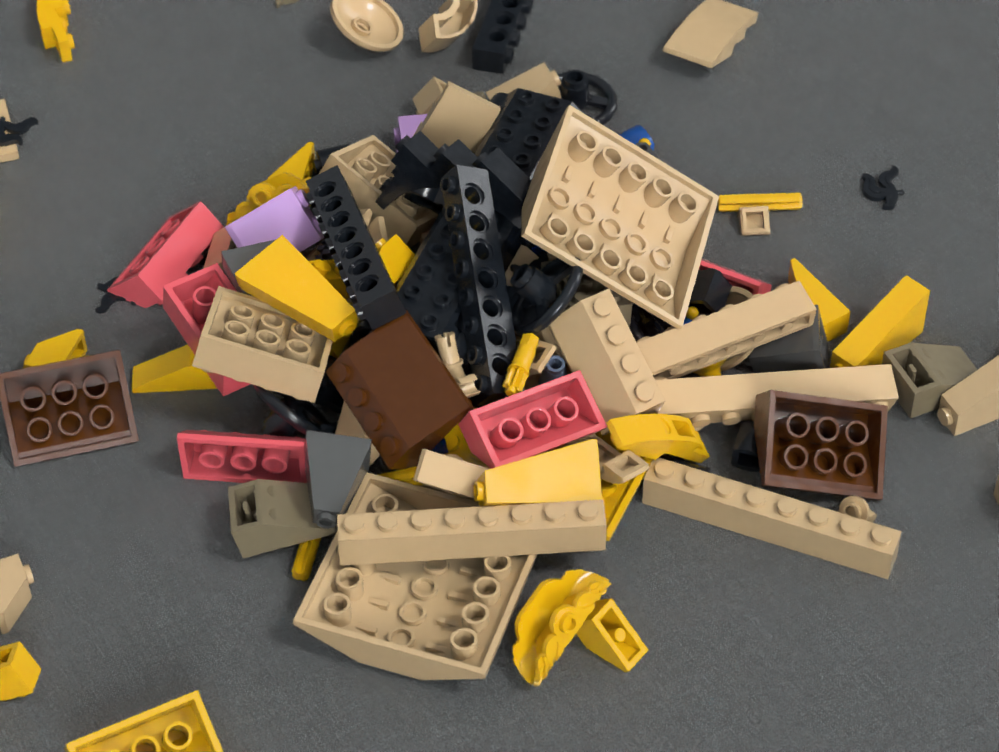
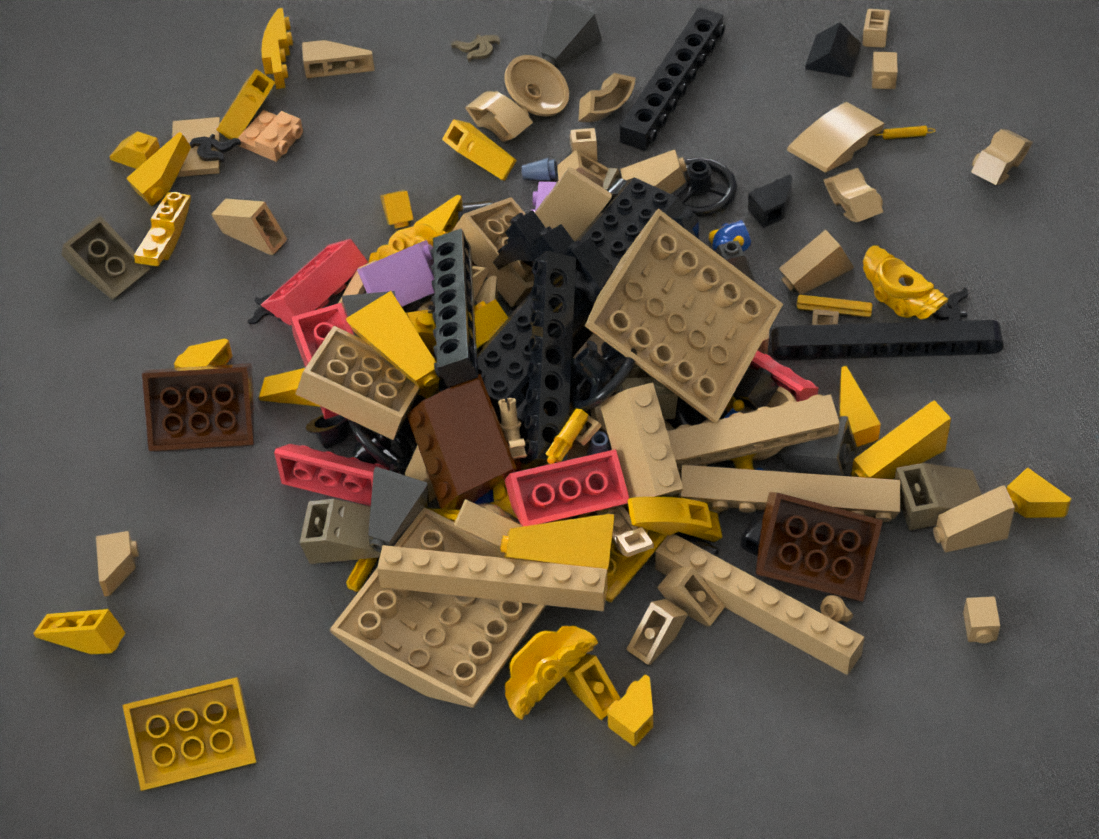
camera: 15 degrees right, 5 degrees up
(34, 80) = (245, 105): none -> yellow slope
(71, 109) = (271, 134): none -> light nougat plate
(73, 204) = (250, 223): none -> tan slope
(125, 21) = (333, 58): none -> tan slope
(229, 410) = (330, 430): none -> black piece
(241, 166) = (397, 208): none -> yellow slope
(319, 93) = (479, 148): none -> yellow slope
(331, 55) = (499, 115): none -> tan brick
(393, 106) = (540, 170): none -> sand blue cone
(437, 66) = (584, 141): none -> tan brick
(658, 106) = (770, 201): none -> black slope
(665, 565) = (656, 630): none -> tan slope
(666, 657) = (633, 713): none -> yellow slope
(693, 521) = (691, 594): none -> tan slope
(730, 160) = (815, 264): none -> tan slope
(748, 87) = (854, 195): none -> tan brick
(782, 19) = (905, 132): none -> yellow piece
(828, 228) = (887, 340): none -> black beam
(835, 182) = (915, 298): none -> yellow piece
(894, 26) = (1003, 153): none -> tan brick

